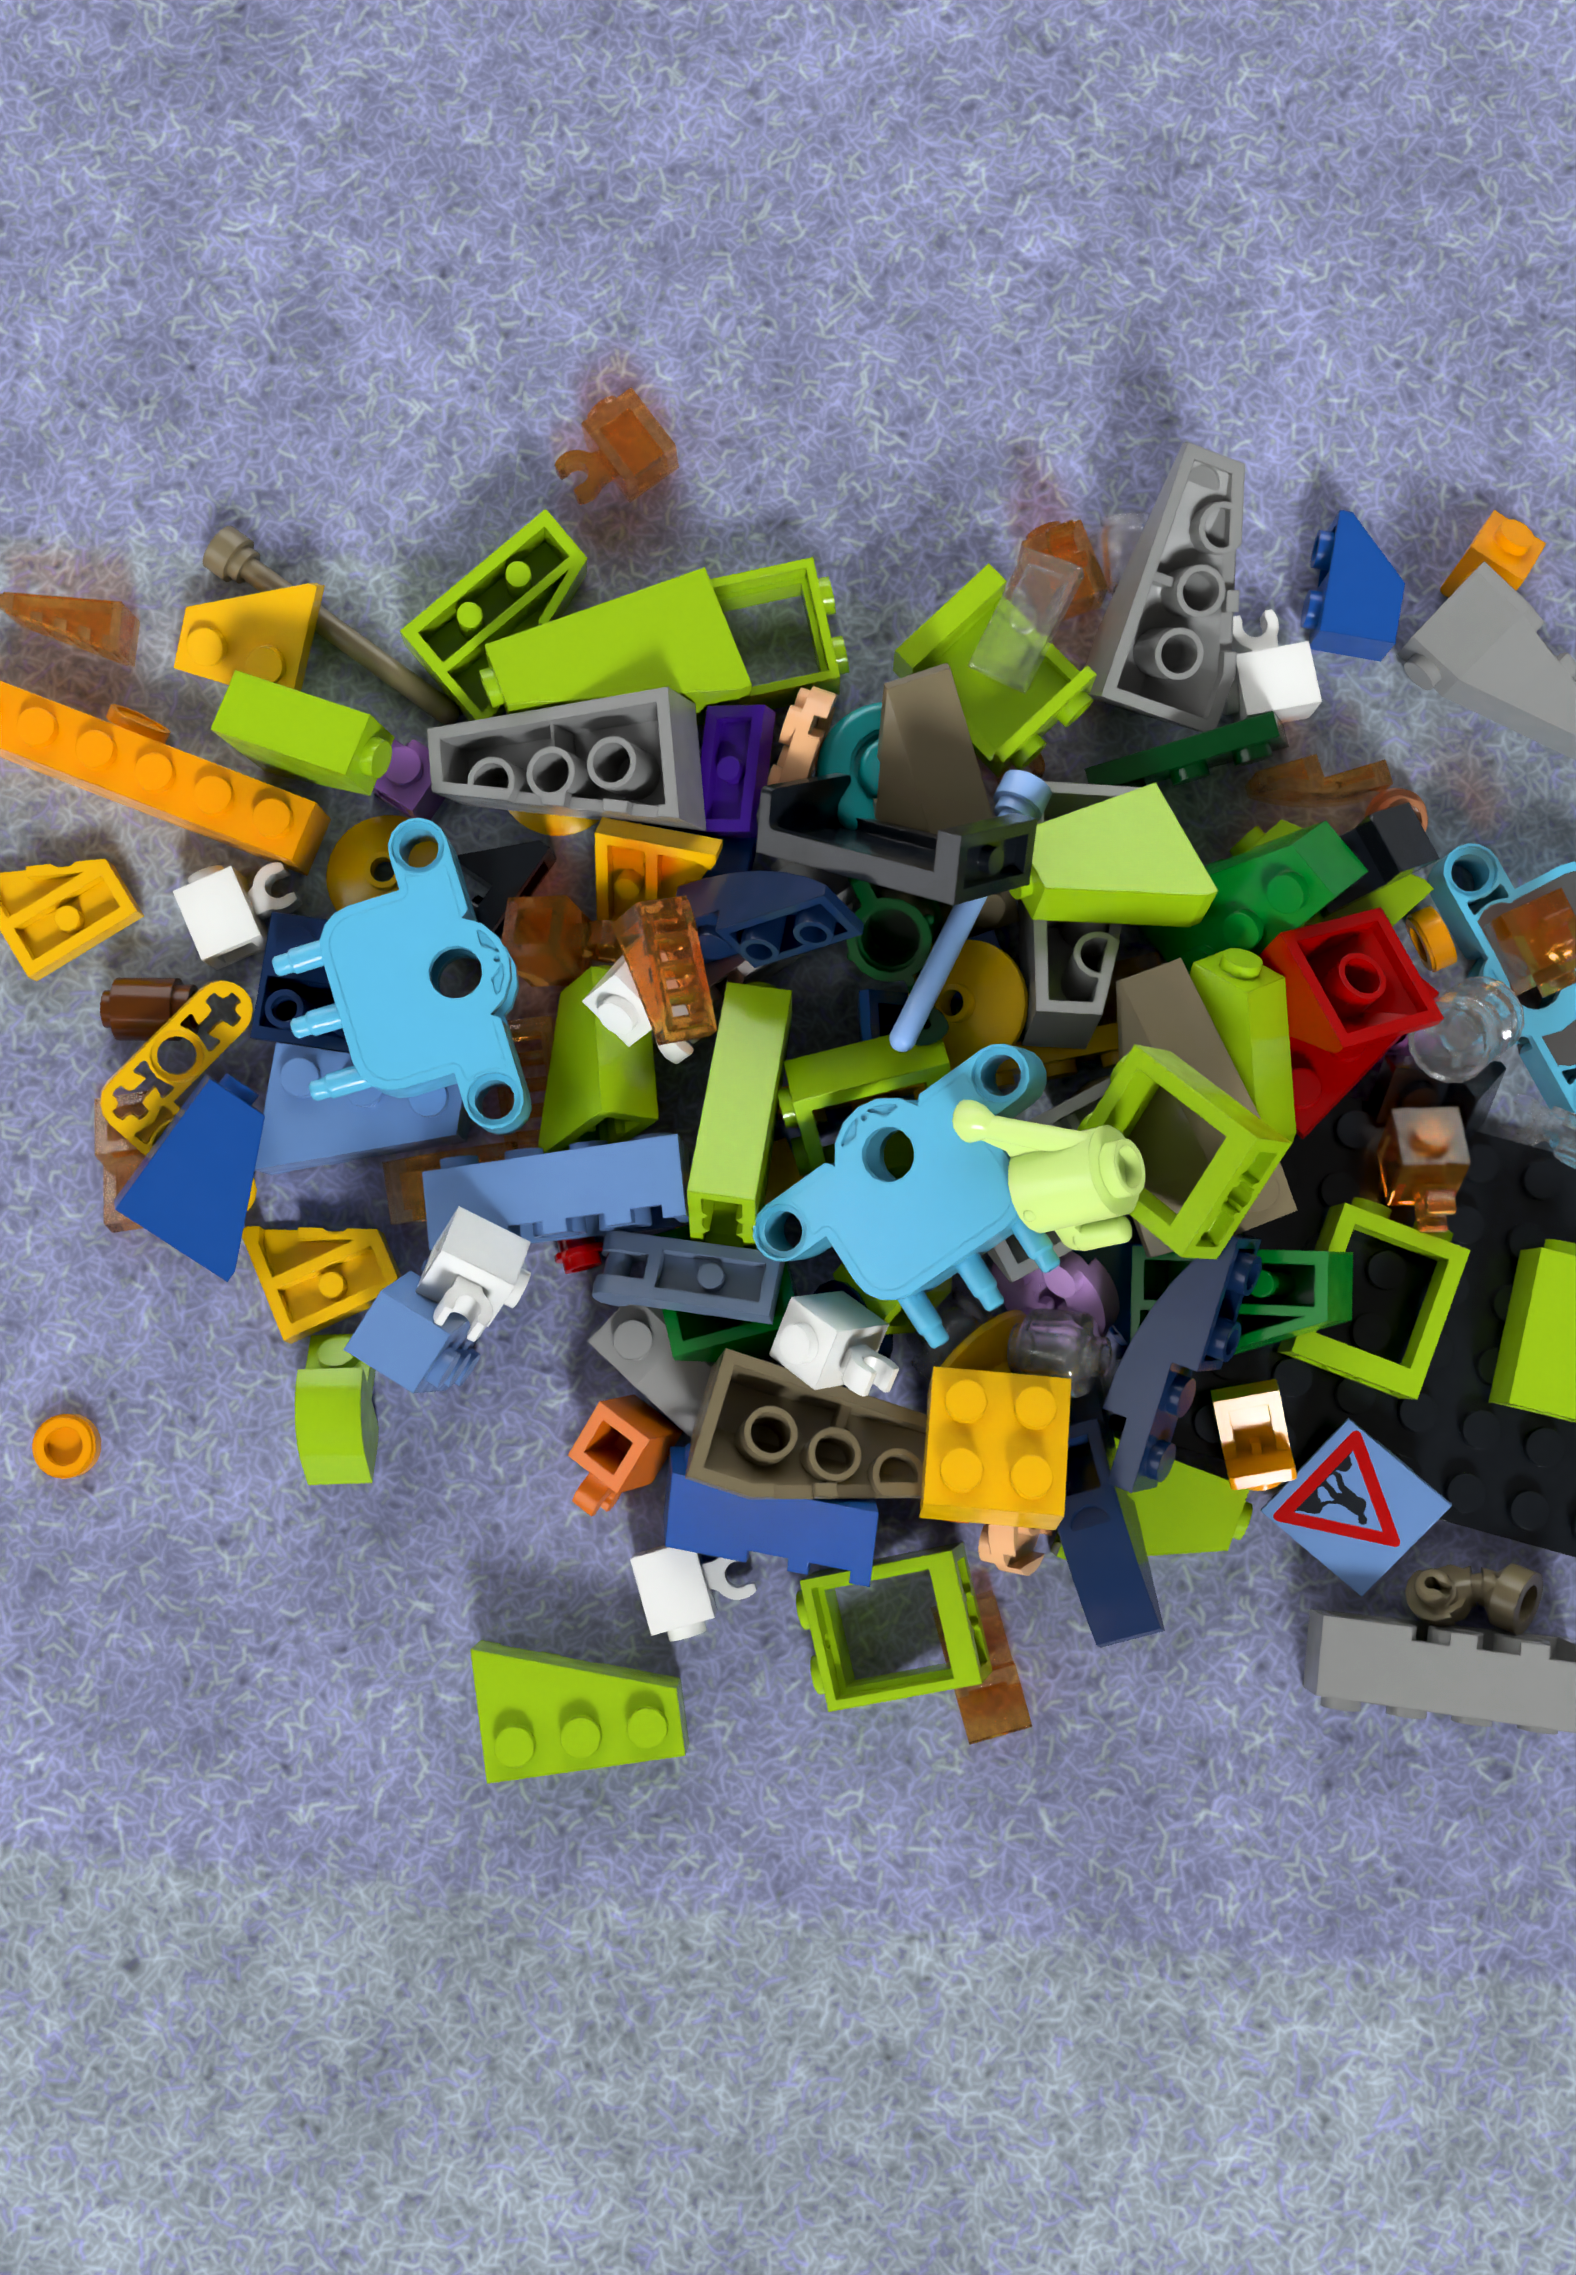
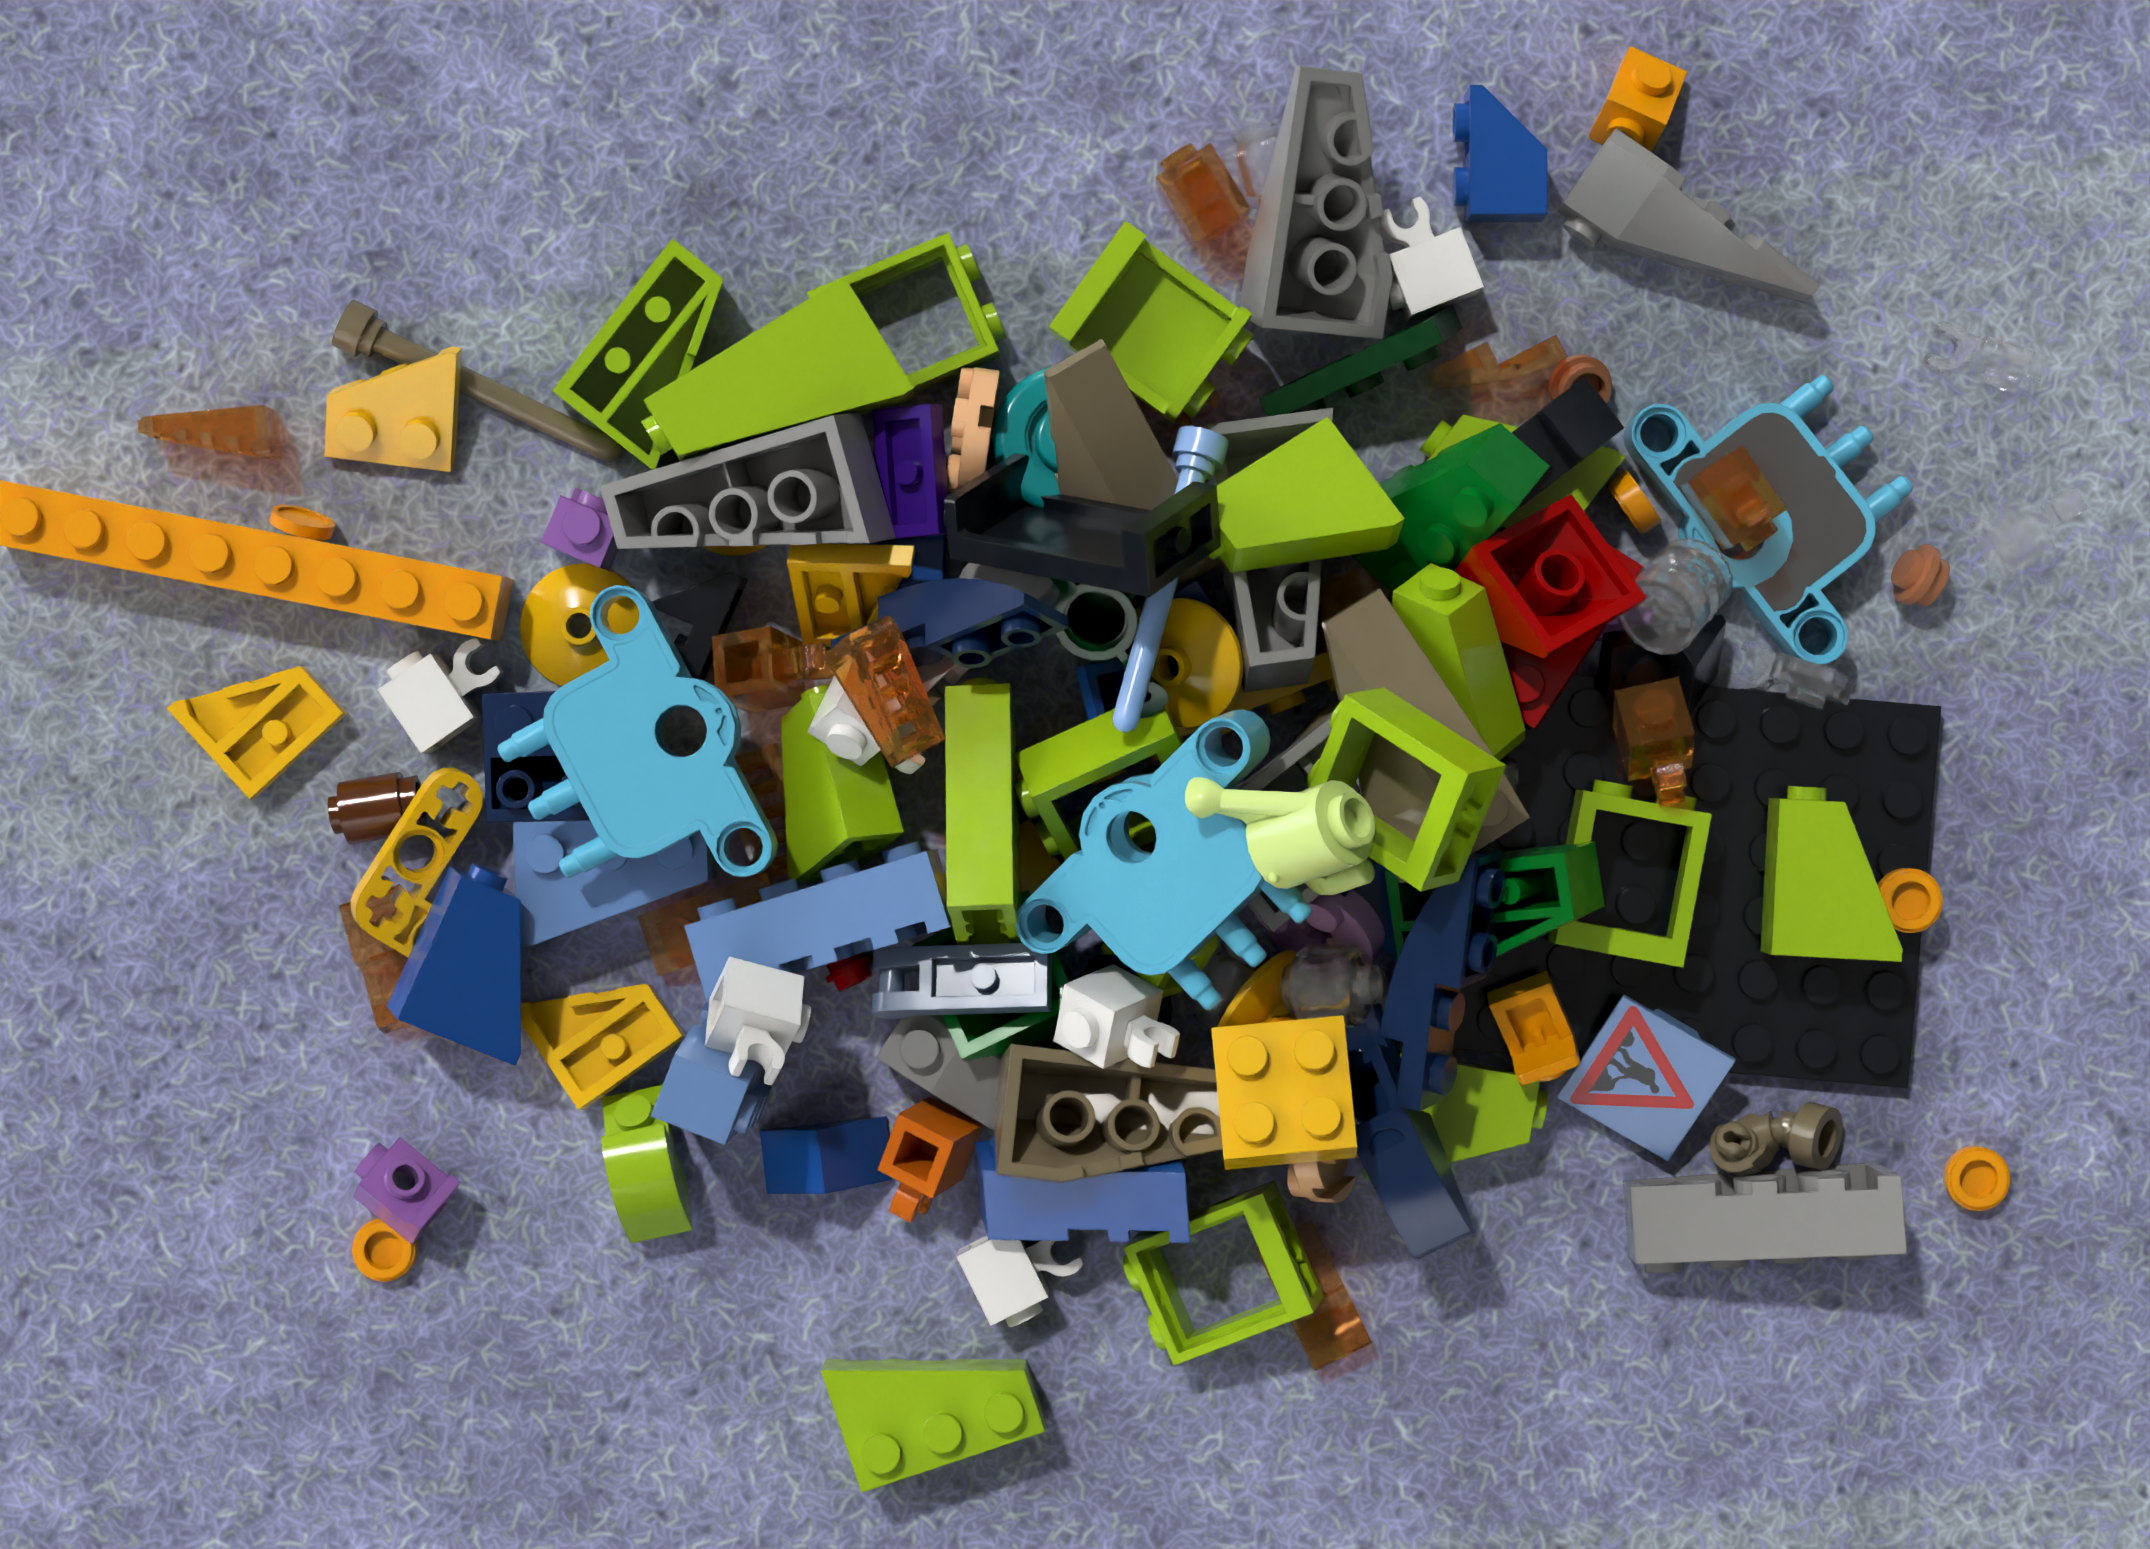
camera: 15 degrees left, 5 degrees up
(95, 1409) = (403, 1210): none -> medium lavender brick
(303, 735) = (480, 514): lime slope -> none
(518, 1434) = (824, 1156): none -> blue slope
(623, 447) = (736, 144): clear orange brick -> none
(1026, 619) = (1173, 266): clear slope -> none

